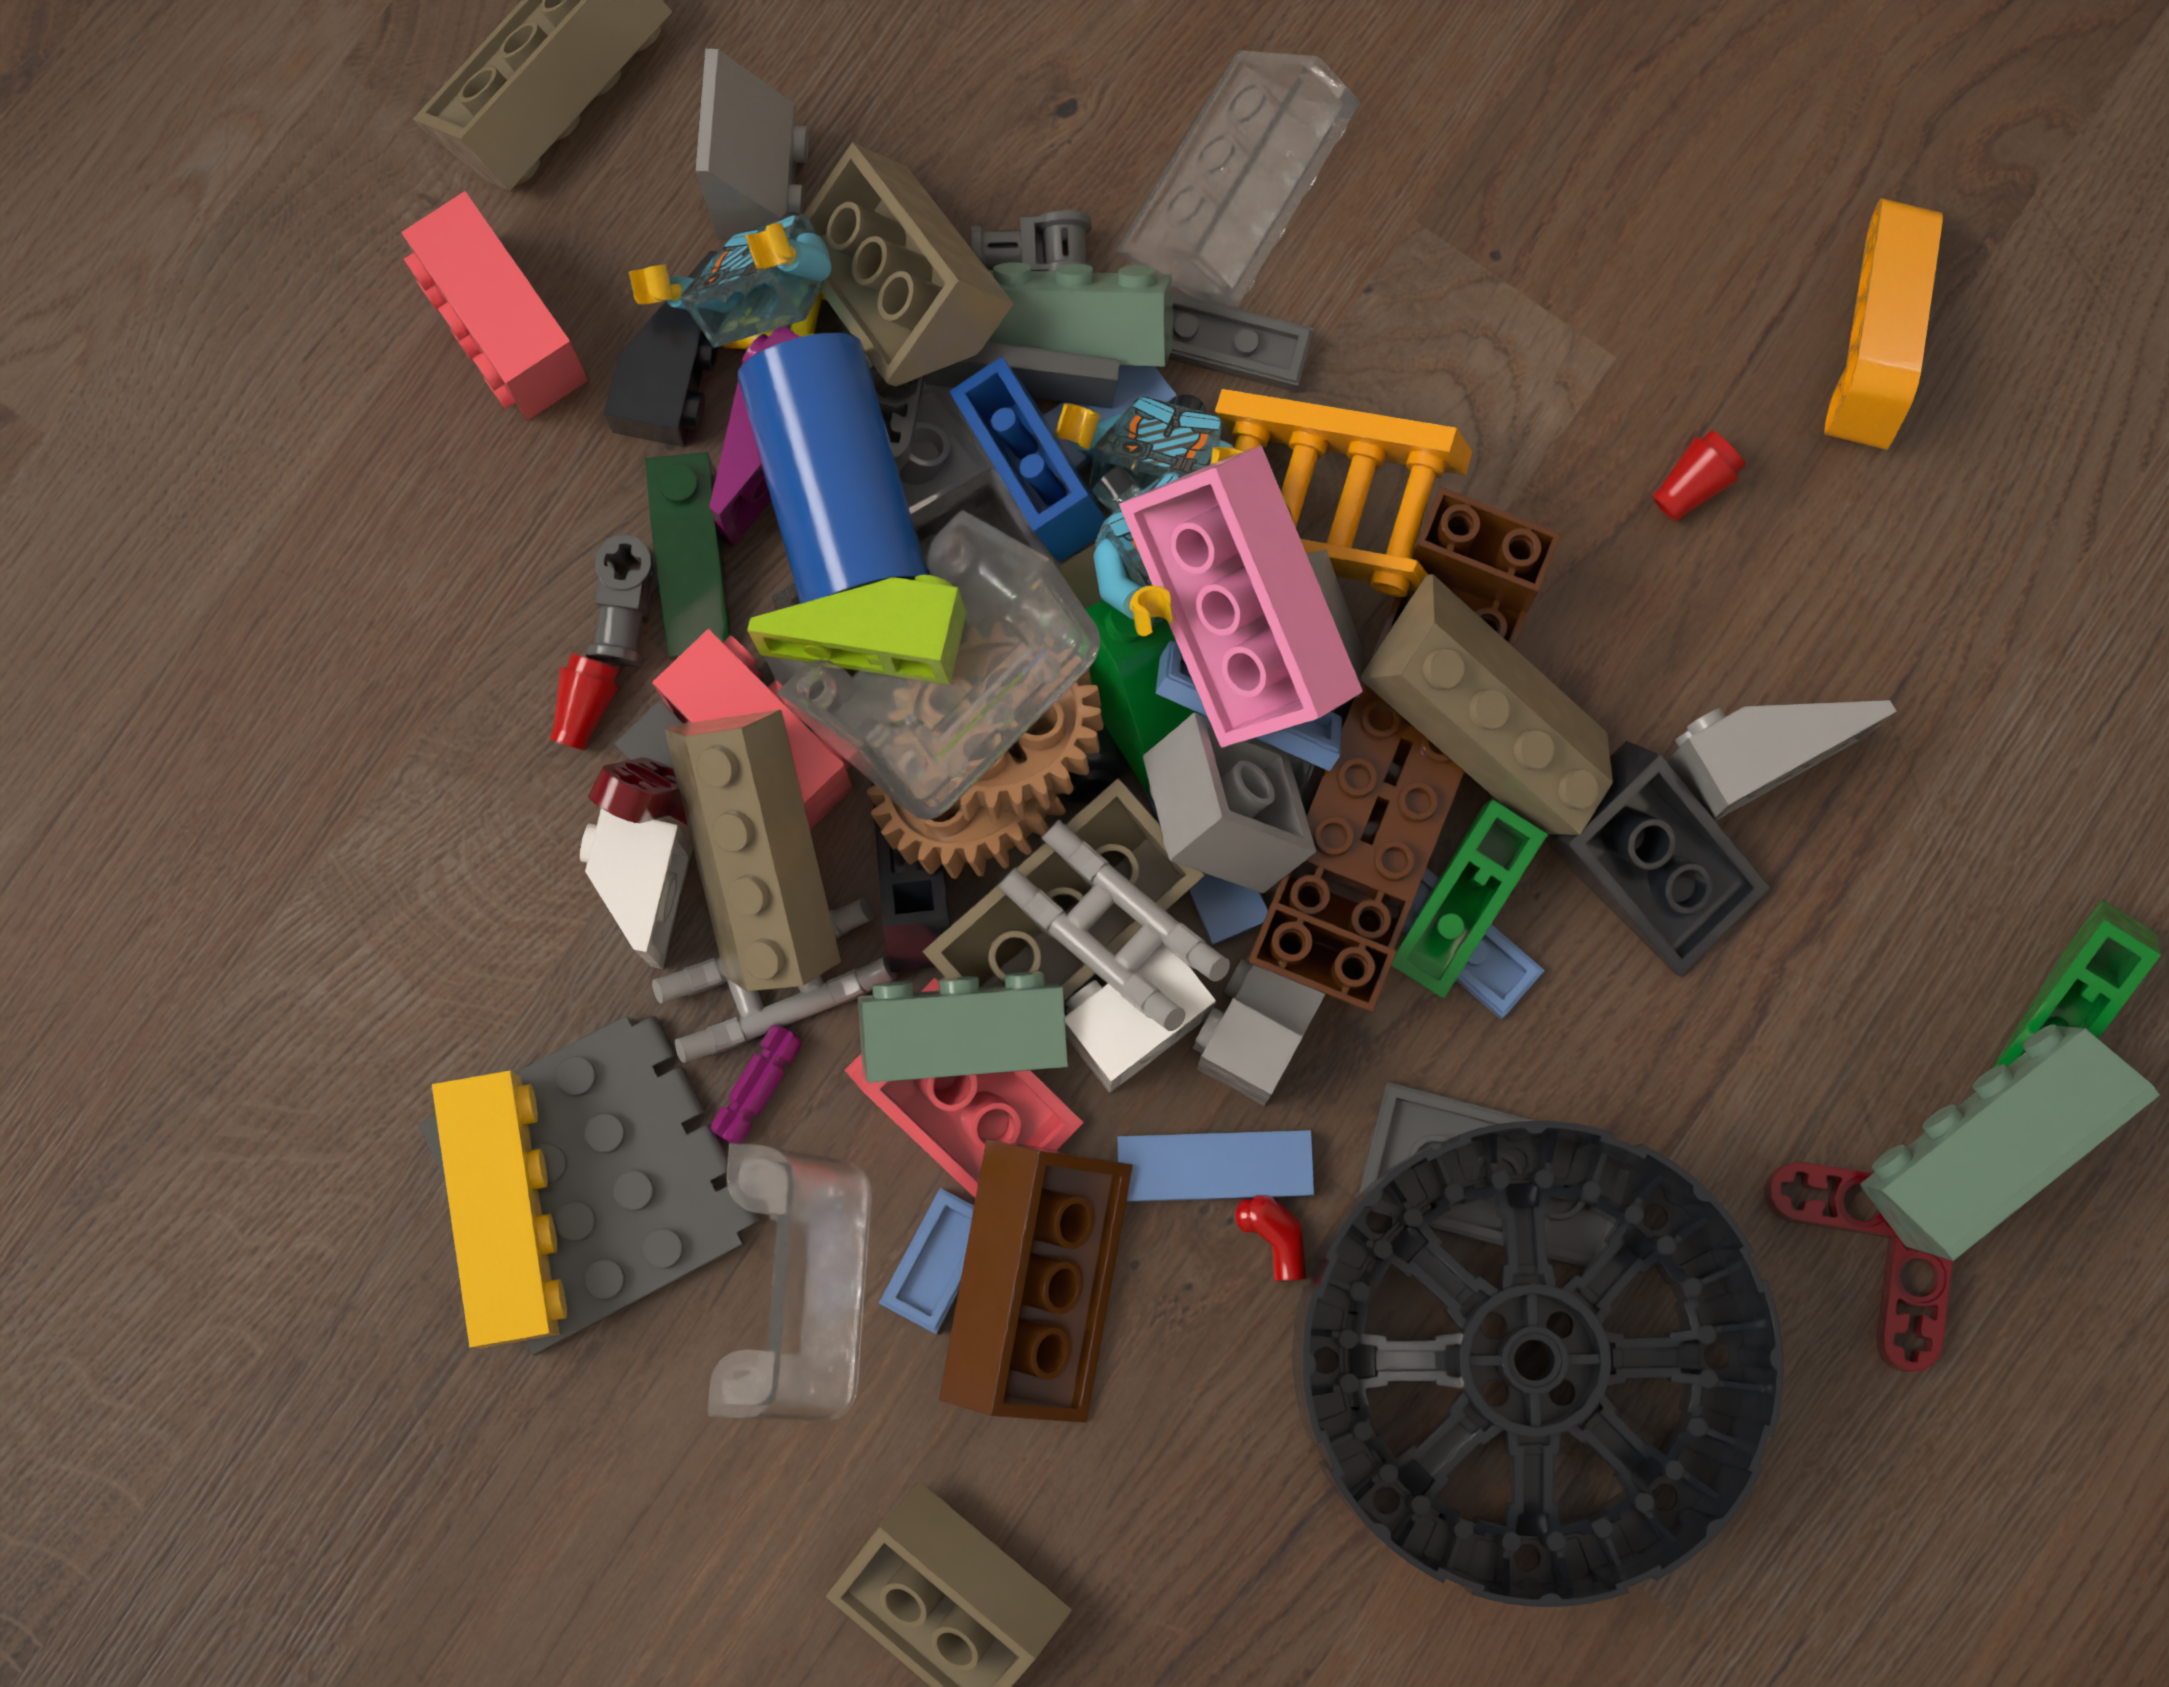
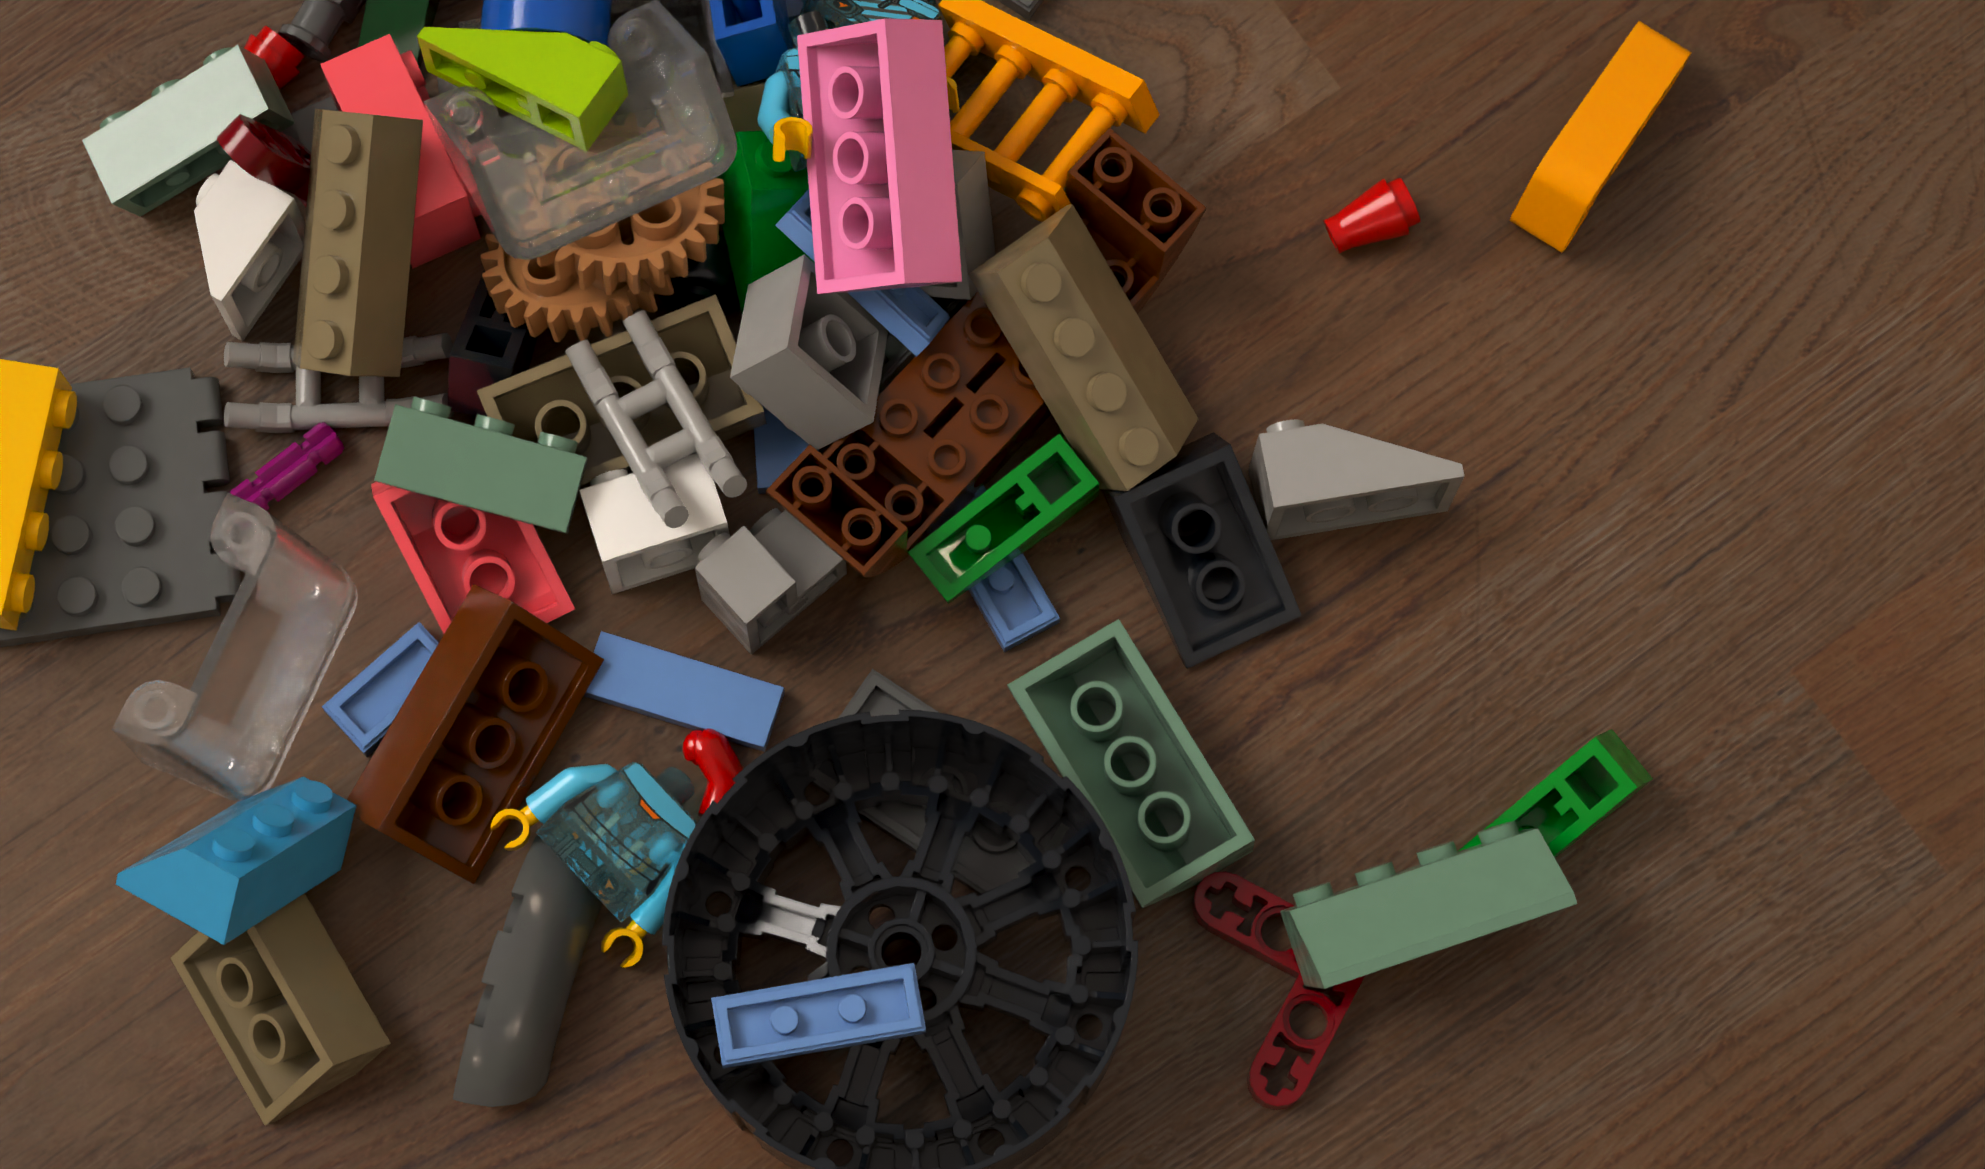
camera: 15 degrees right, 5 degrees down
(536, 784) = (172, 137): none -> brick
(871, 1489) = (247, 859): none -> dark azure slope
(1179, 1497) = (528, 983): none -> dark grey brick
(1216, 1336) = (616, 835): none -> clear light blue torso
(1494, 1460) = (818, 1015): none -> medium blue tile
(1674, 1091) = (1134, 763): none -> sand green slope

